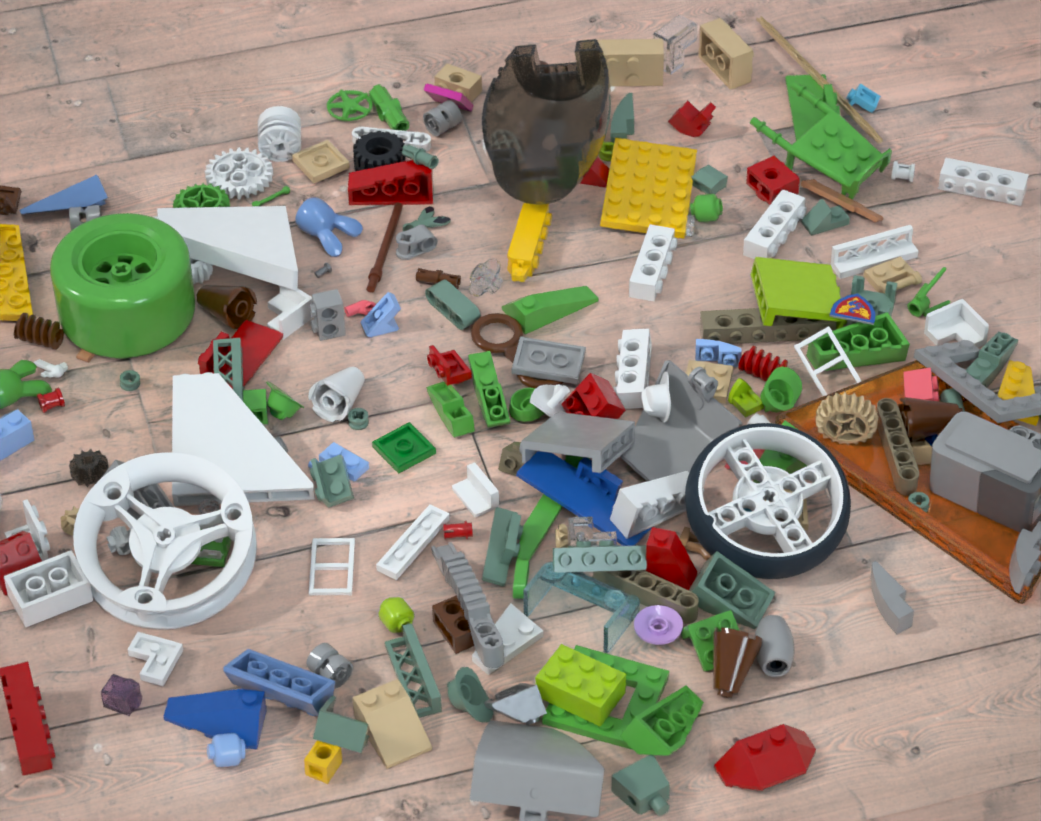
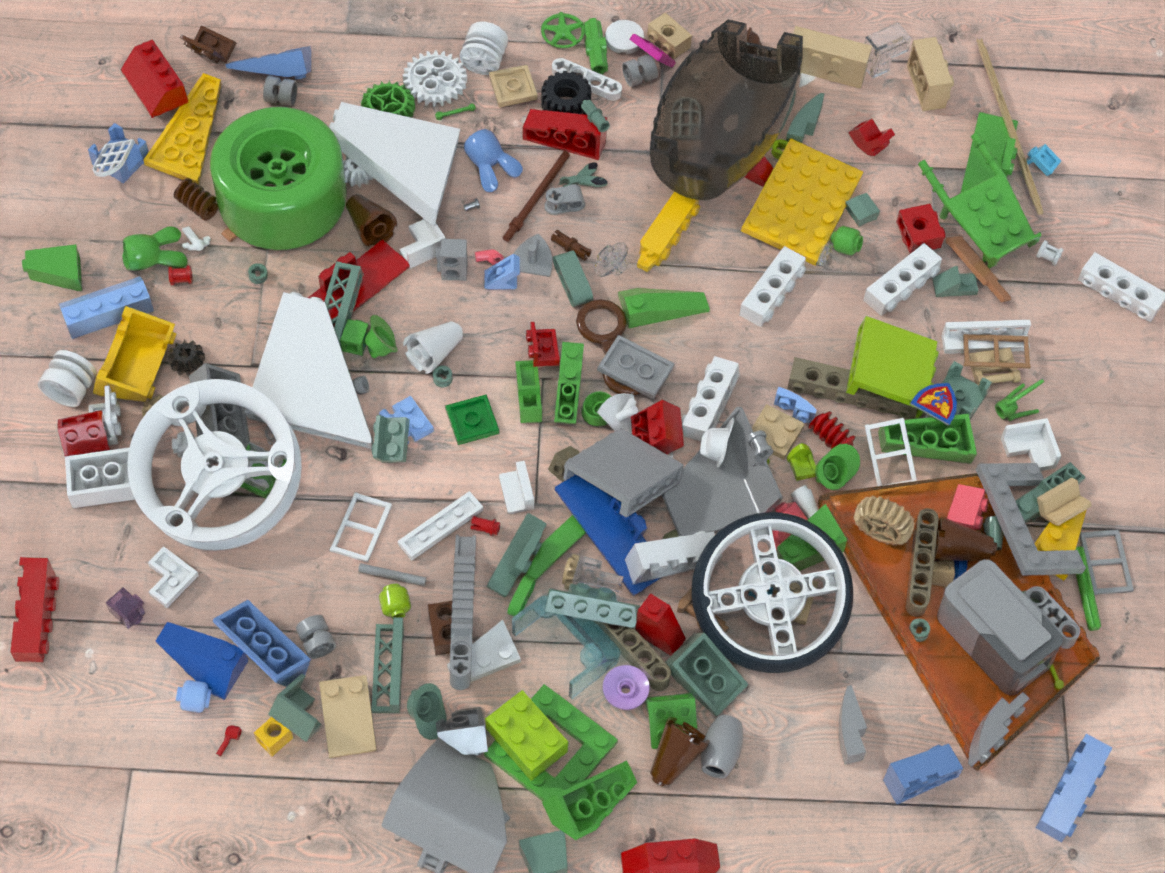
camera: 15 degrees right, 15 degrees up
(37, 474) = (135, 356): none -> yellow windscreen
(279, 772) = (231, 732): none -> red hand
(381, 596) = (392, 574): none -> light grey bar
(408, 297) = (535, 256): none -> light grey shield
(412, 96) = (618, 36): none -> white tile
(885, 251) = (995, 338): none -> medium nougat window
(972, 616) = (921, 772): none -> medium blue wedge
(1006, 361) = (1062, 502): none -> tan panel

